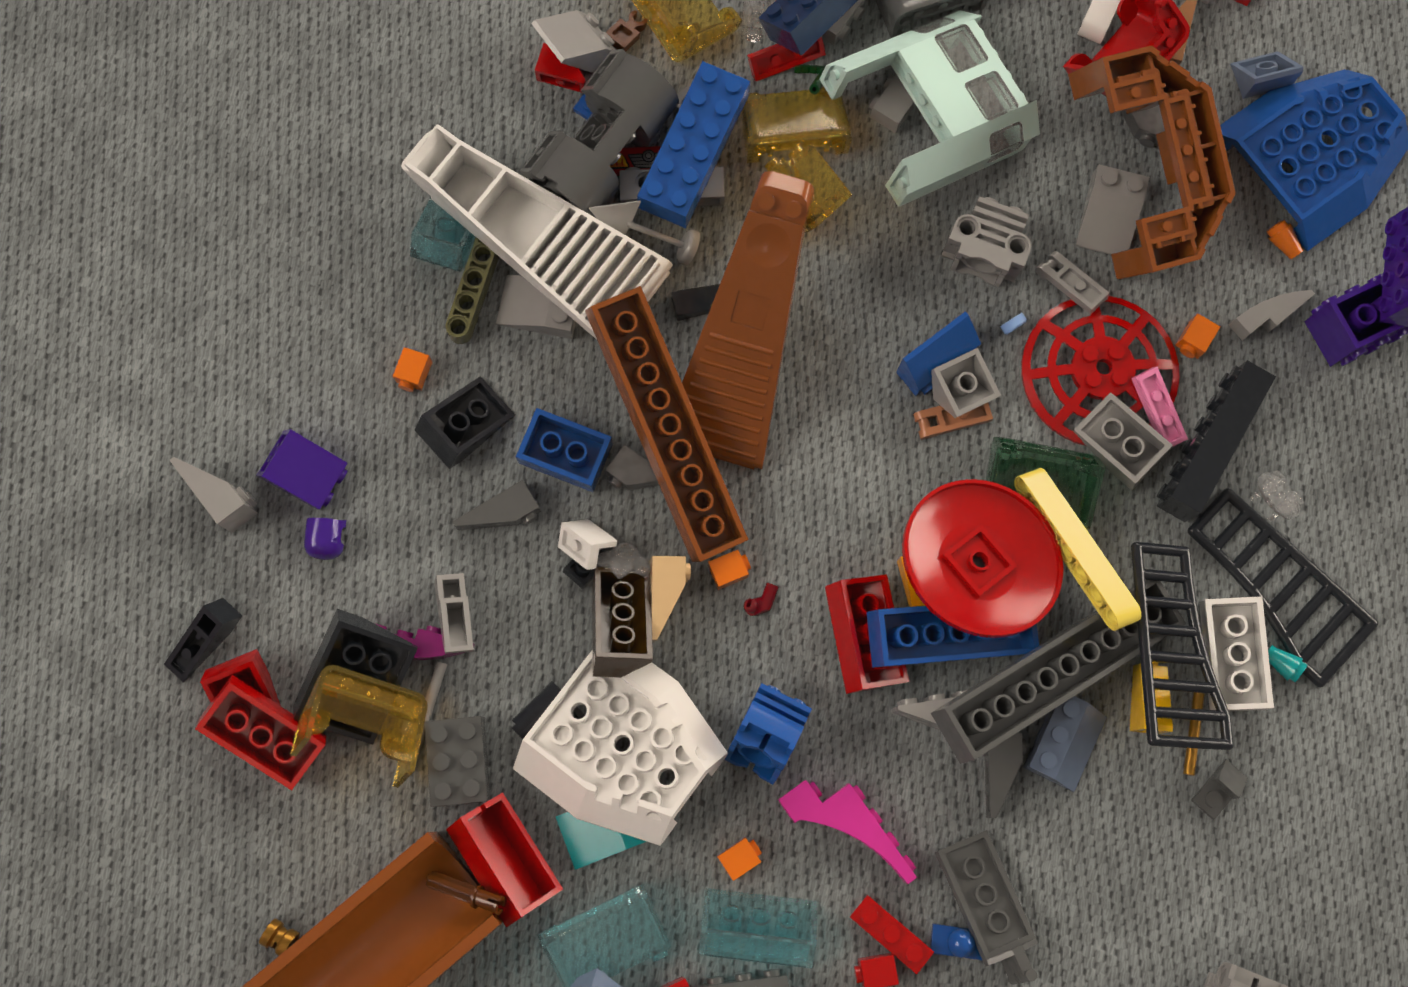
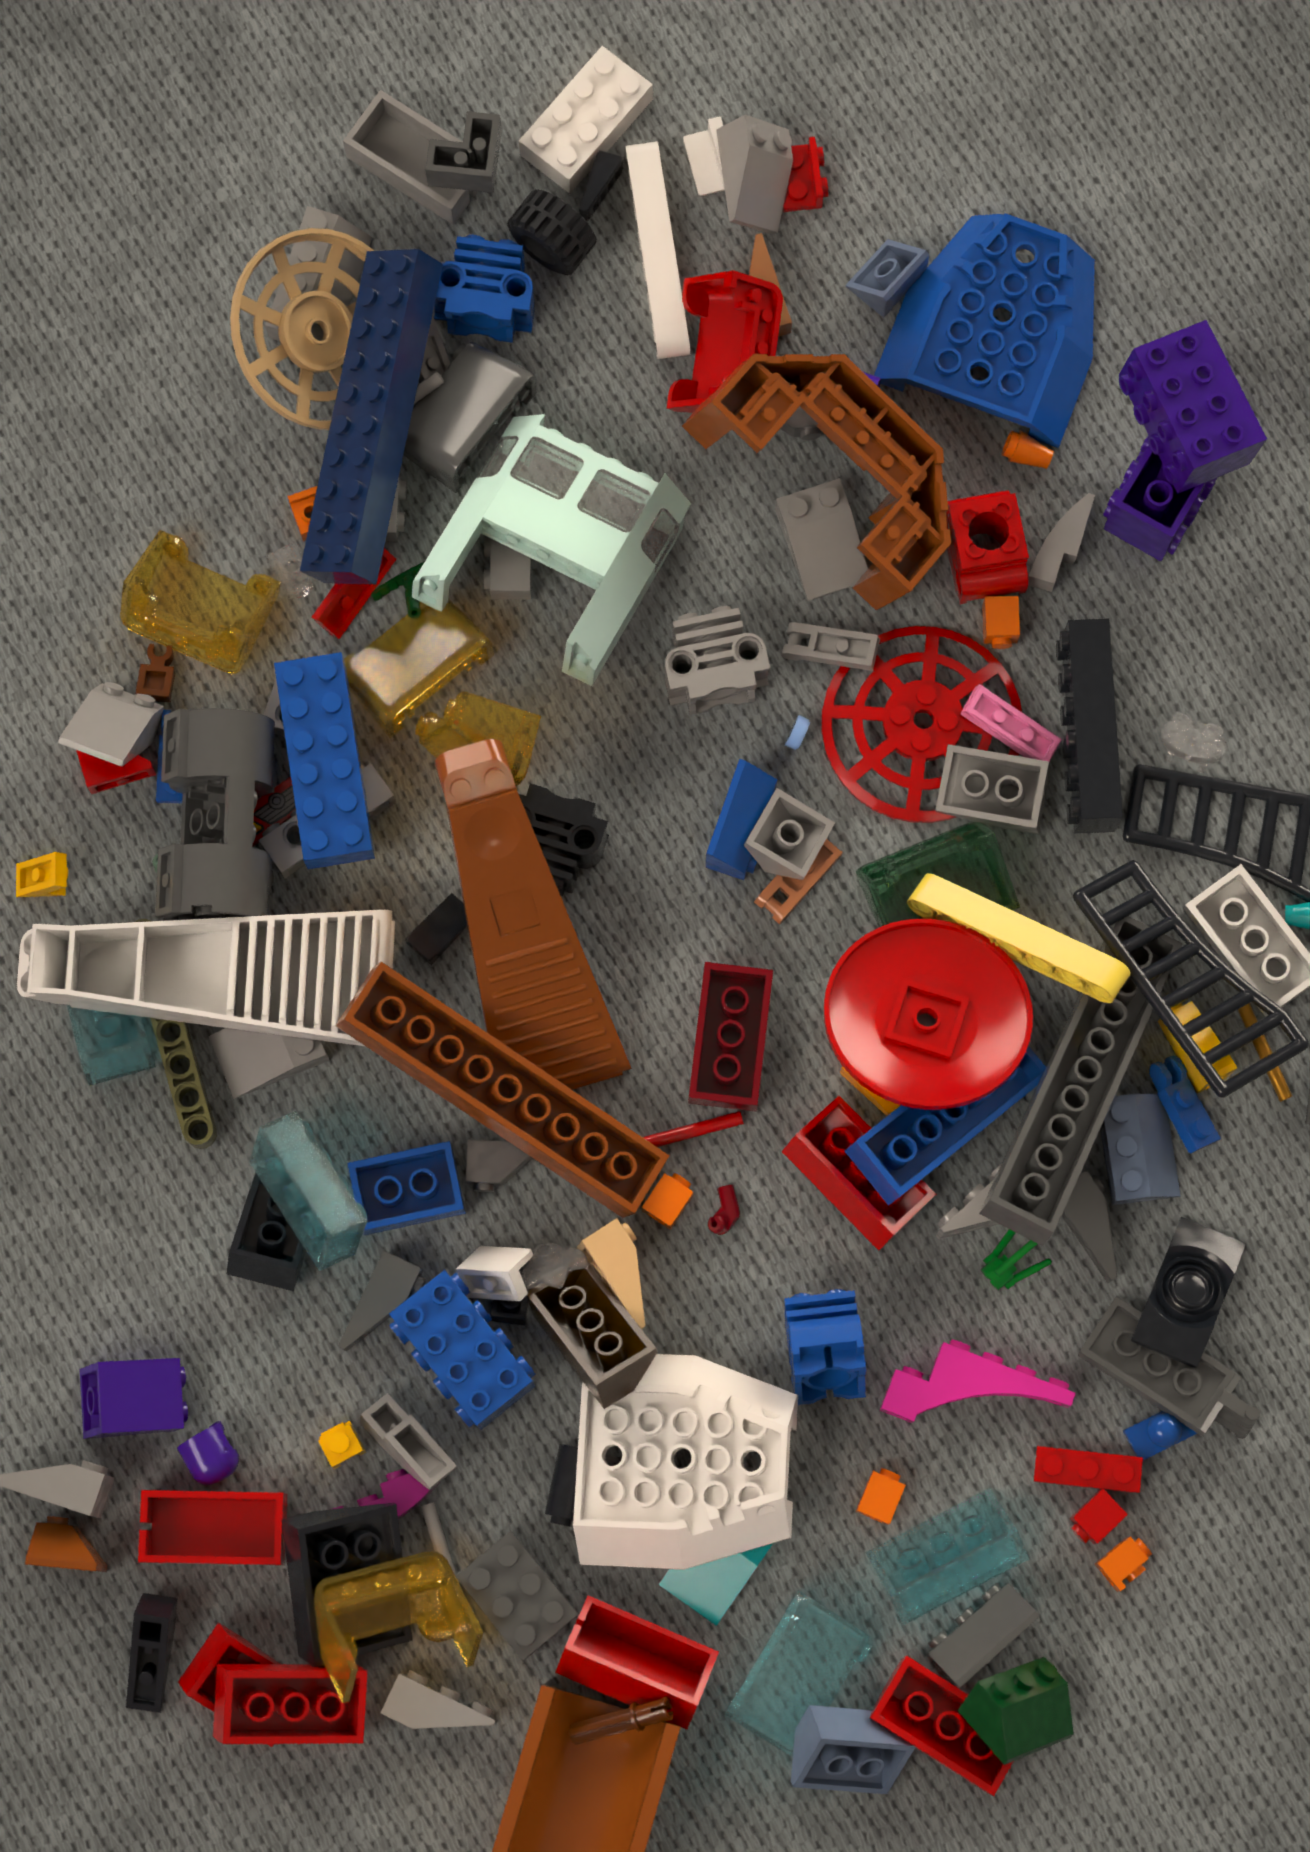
camera: 30 degrees left, 0 degrees up
(191, 534) = (62, 1547): none -> dark orange slope
(292, 584) = (212, 1527): none -> red piece
(345, 791) = (421, 1707): none -> light grey slope
(412, 369) = (178, 1210): orange brick -> none
(412, 586) = (340, 1444): none -> yellow window
(471, 109) = (42, 876): none -> yellow slope
(499, 408) = (308, 1190): none -> clear light blue brick
(528, 576) = (462, 1349): none -> blue brick
(620, 218) = (299, 893): light grey piece -> none
(777, 535) = (695, 1129): none -> red bar
(818, 290) = (560, 828): none -> black piece
(840, 489) = (730, 1036): none -> dark red brick
(920, 761) = (1001, 1269): none -> green plant
(1038, 861) = (1188, 1292): none -> black slope
(1115, 731) = (1183, 1104): none -> blue hinge
(1207, 291) = (983, 571): none -> red piece

